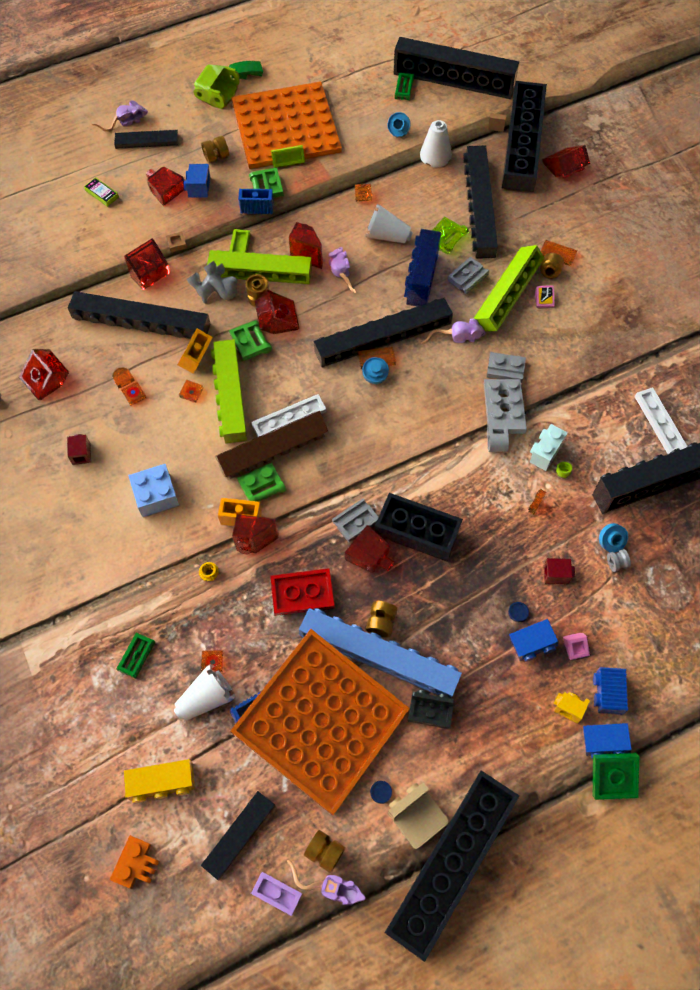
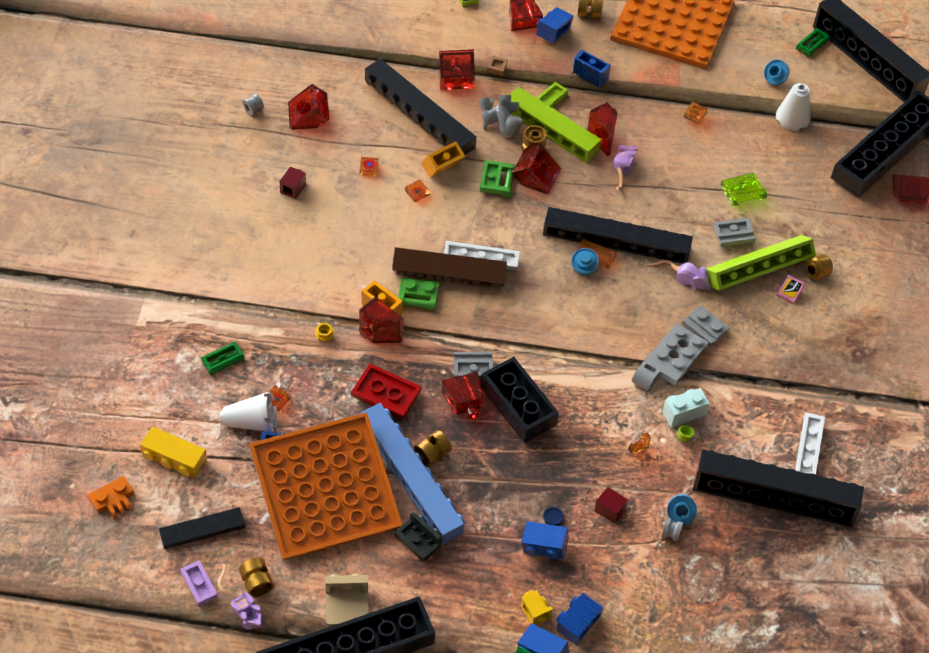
camera: 30 degrees right, 10 degrees down
(122, 377) = (369, 148): clear orange tile -> none
(153, 490) = (327, 246): light blue brick -> none
(230, 393) = (448, 207): lime brick -> none
(271, 181) = (619, 60): bright green plate -> none
(288, 156) = (651, 46): lime tile -> none
(381, 792) = (332, 567): dark blue piece -> none
(388, 227) = (691, 151): white cone -> none
(422, 268) = (694, 201): clear blue brick -> none
(480, 203) = (798, 178): black brick -> none
(497, 122) = (873, 118): medium nougat tile -> none
(568, 254) = (841, 264): clear orange tile -> none
(576, 645) = (580, 571): bright pink slope -> none

